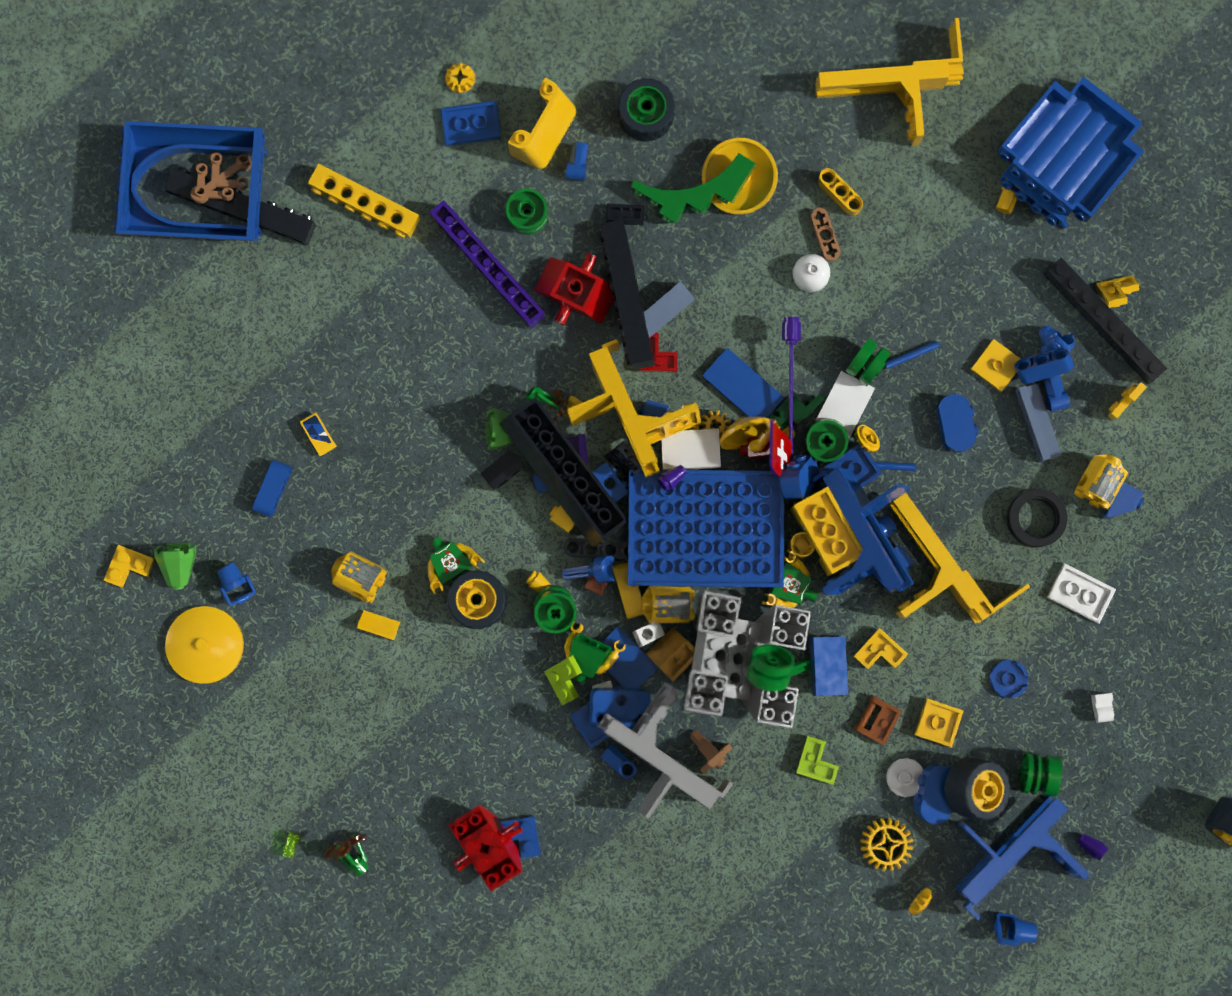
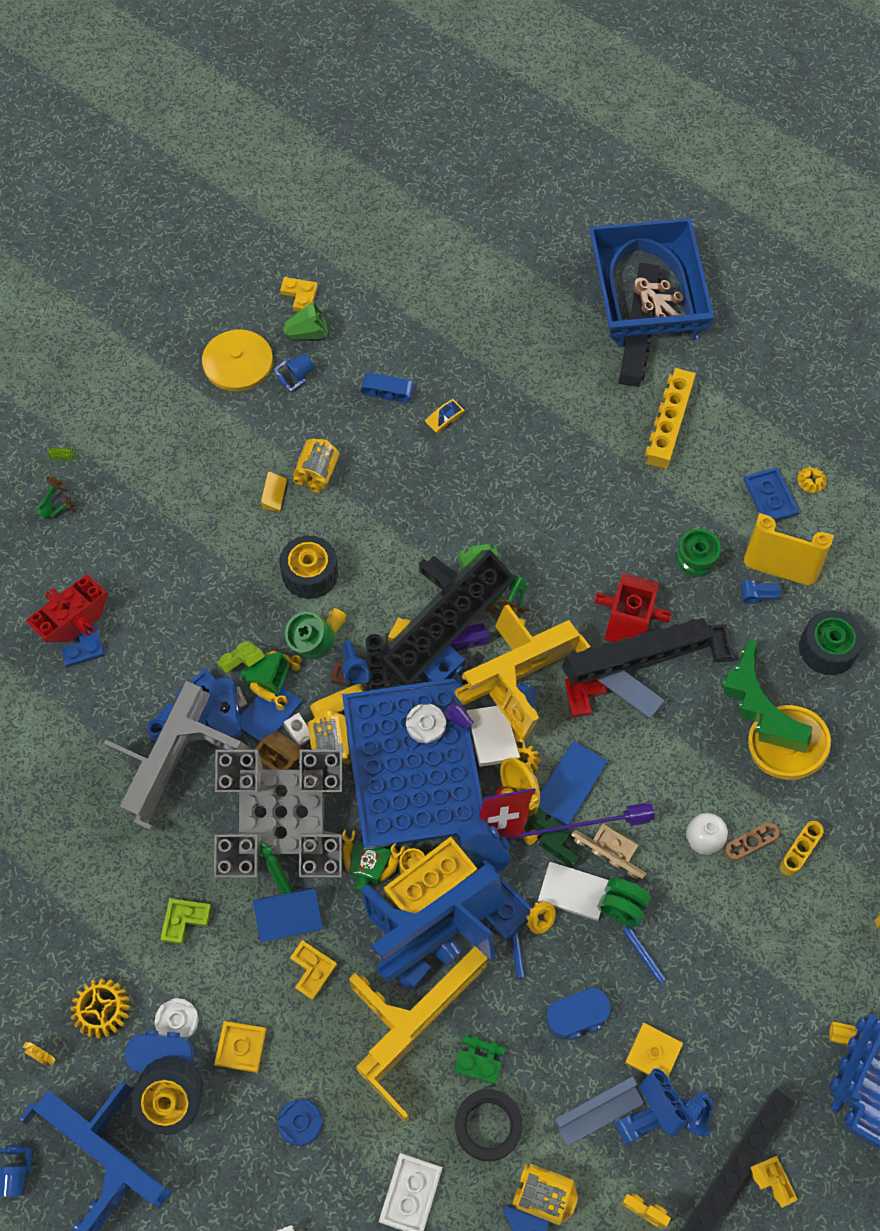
camera: 80 degrees right, 20 degrees down
(449, 562) = (343, 538): torso -> none
(487, 264) = (636, 527): dark purple brick -> none
(672, 510) = (426, 723): none -> white tile
(715, 758) = (179, 808): medium nougat piece -> none
(770, 667) = (273, 837): green wheel -> none
(812, 360) = (613, 846): none -> tan bracket
(827, 451) = (530, 873): green wheel -> none
(883, 722) = (232, 984): dark orange plate -> none
(985, 519) = (478, 1066): none -> green plate
(1043, 774) = (192, 1171): green wheel -> none

